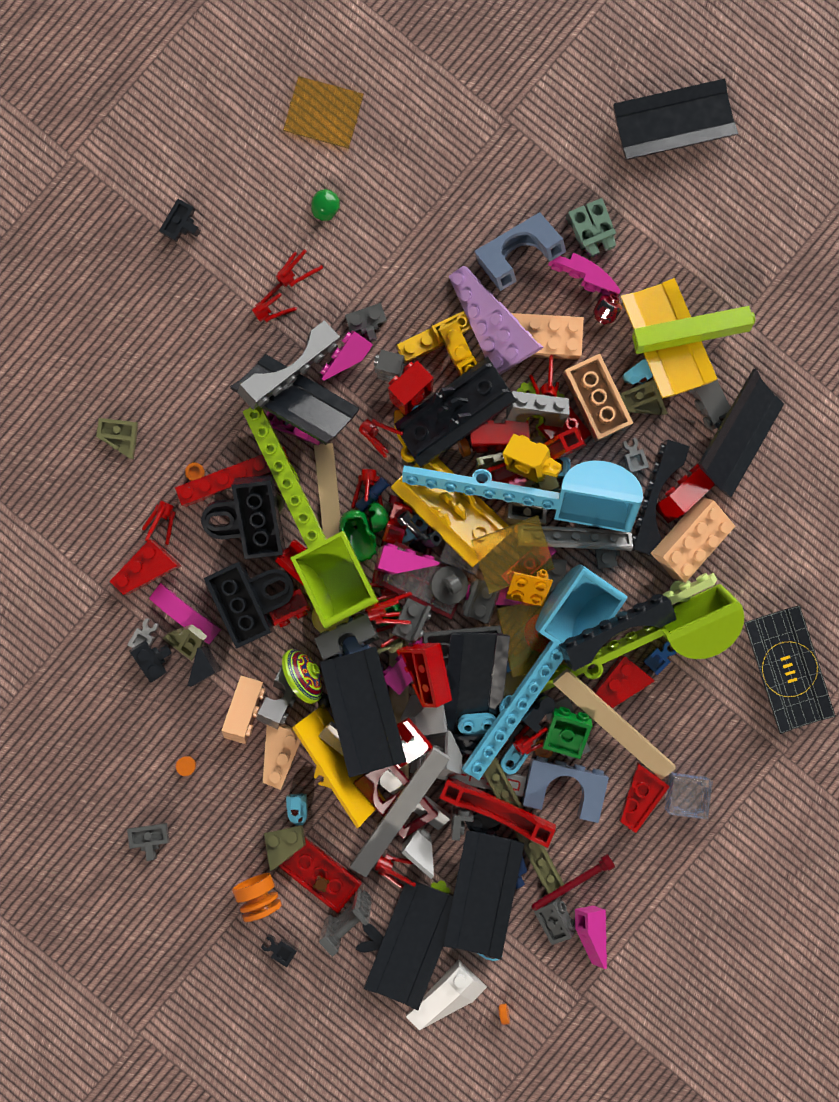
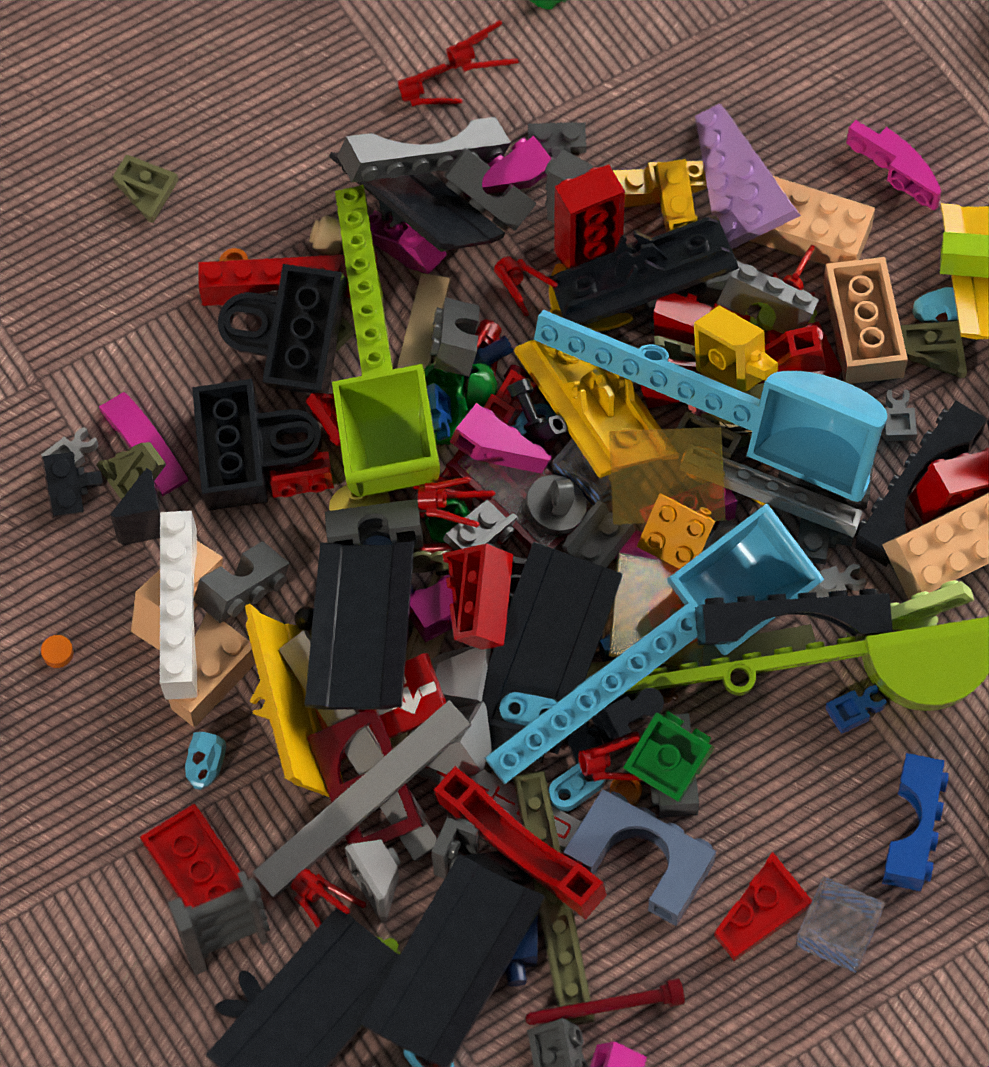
camera: 20 degrees right, 25 degrees down
(144, 567) = (109, 360): red wedge -> none
(163, 511) = (167, 298): red plant -> none
(245, 438) = (327, 236): none -> tan head
(258, 756) = (177, 632): none -> white arch
(258, 900) = (90, 862): orange wheel -> none
(282, 952) = (94, 968): black plate -> none
(283, 844) = (162, 805): olive wing -> none
(302, 676) = (289, 558): dish -> none
(321, 884) = (198, 880): reddish brown piece -> none
(353, 385) = (467, 176): none -> dark grey arch
(355, 506) = (455, 336): none -> dark grey arch
(359, 545) = (440, 410): none -> blue plate
(464, 447) = (643, 332): orange tile -> none
(533, 232) = (840, 91): sand blue arch -> none
(592, 227) = (925, 108): sand green hips -> none
(607, 309) = (915, 212): dark red head -> none
(614, 724) = (750, 771): tan tile -> none
(621, 682) = (775, 724): red wedge -> none
(624, 581) = (839, 581): none -> light grey plate
(716, 742) = (908, 858): none -> blue arch

